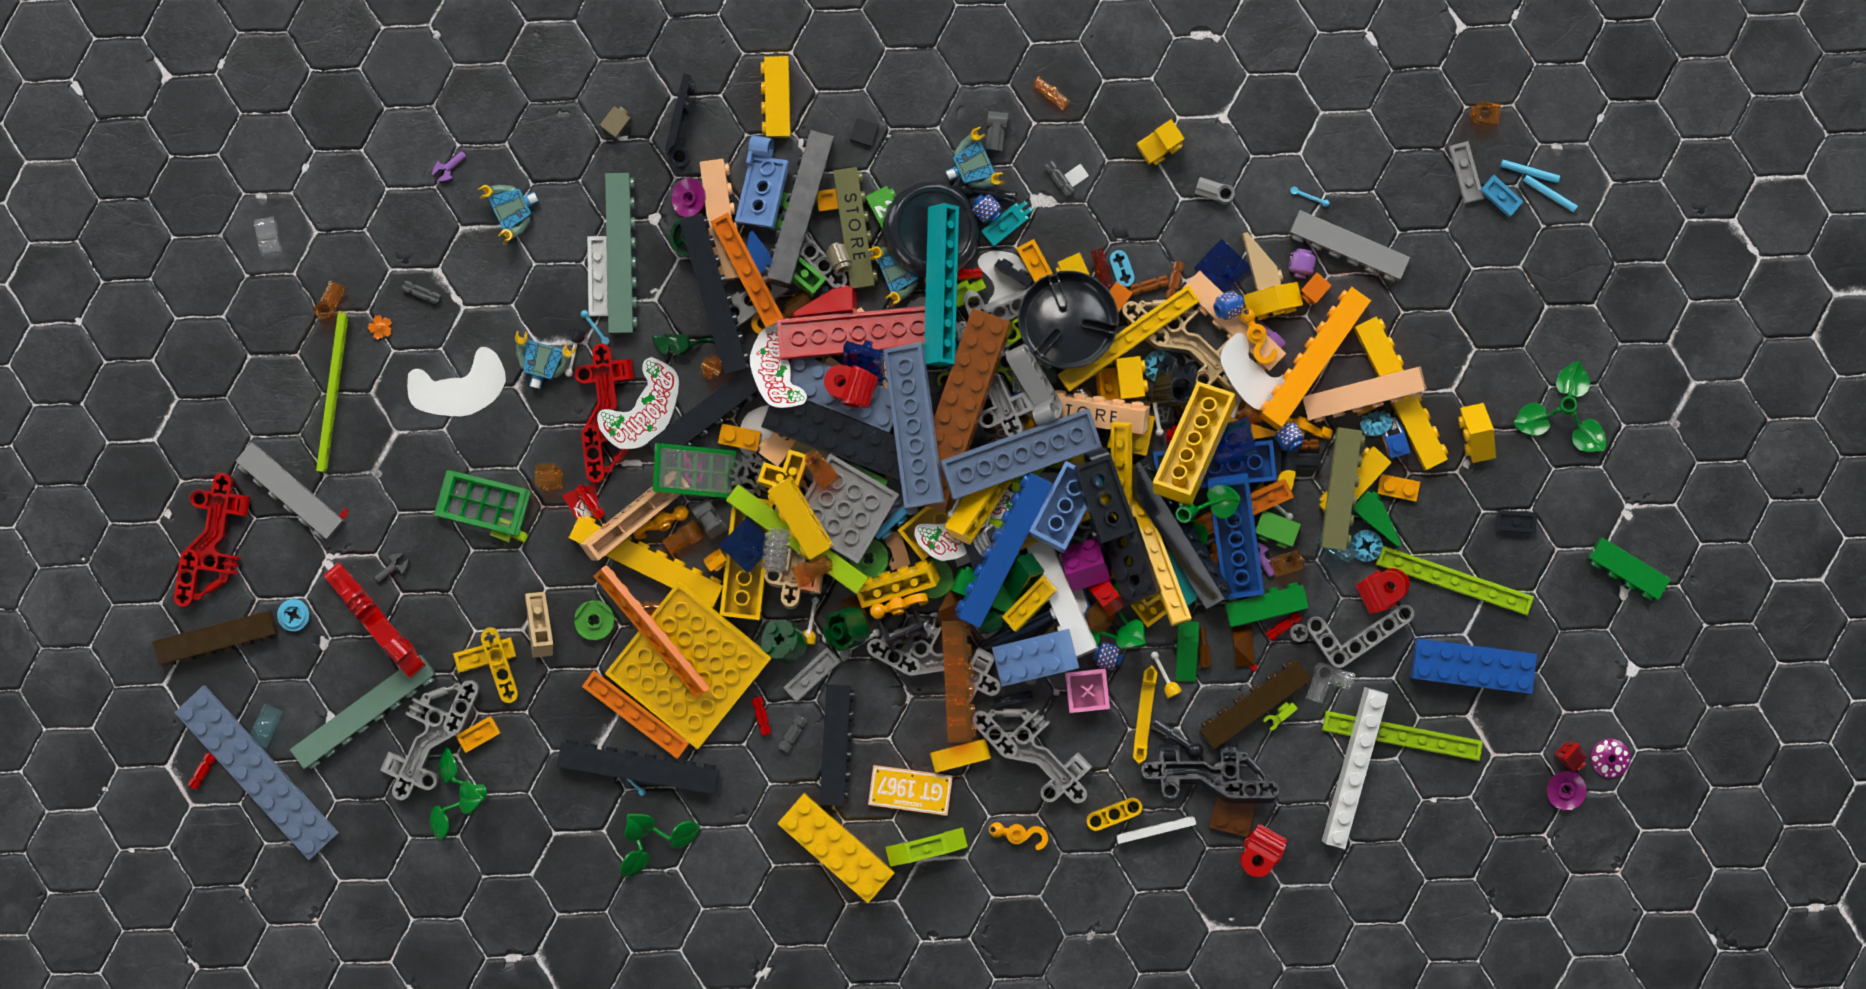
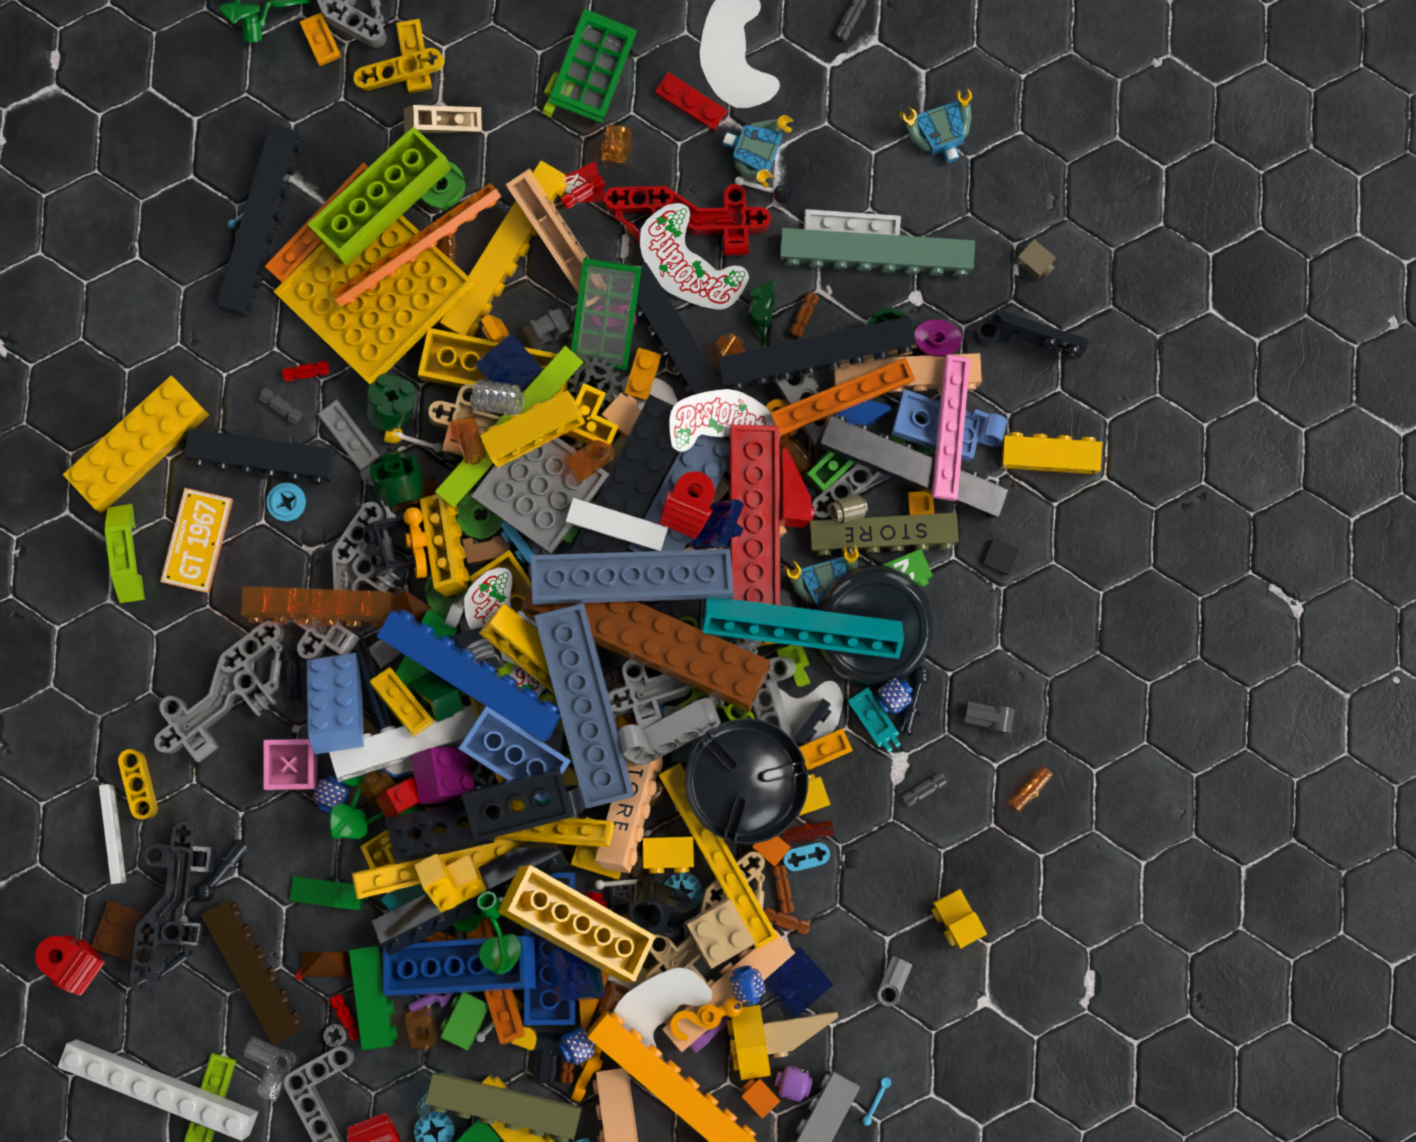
camera: 100 degrees right, 5 degrees down
(449, 166) = (997, 61): medium lavender bar -> none
(504, 419) = (691, 102): none -> red plate
(584, 314) = (774, 227): medium azure hinge -> none
(612, 667) = (379, 196): none -> lime brick
(639, 826) = (186, 213): green plant -> none
(662, 521) = (550, 273): light orange piece -> none
(677, 309) = (804, 314): none -> dark orange axle
(685, 536) = (529, 300): clear orange piece -> none
(764, 180) = (950, 427): none -> bright pink tile
(862, 719) = (275, 500): none -> medium azure gear
(872, 442) = (616, 524): none -> white tile
(953, 566) = (456, 612): none -> light grey connector
(960, 755) = (228, 601): yellow beam -> none
(967, 274) = (816, 667): red axle -> none
(973, 164) = (951, 685): torso -> none
(992, 622) = (386, 655): dark green brick -> none
(1017, 834) = (127, 664): light orange piece -> none
(1076, 175) = (927, 811): white sticker -> none
(1107, 383) = (664, 825): light orange plate -> none
(1144, 714) = (254, 833): yellow piece -> none
(1171, 546) = (450, 883): none -> yellow brick
(1171, 687) = (283, 869): hinge -> none
(1190, 331) = (719, 933): none -> tan brick
(1204, 650) = (326, 915): reddish brown axle -> none
(1285, 711) = (238, 1008): lime plate -> none

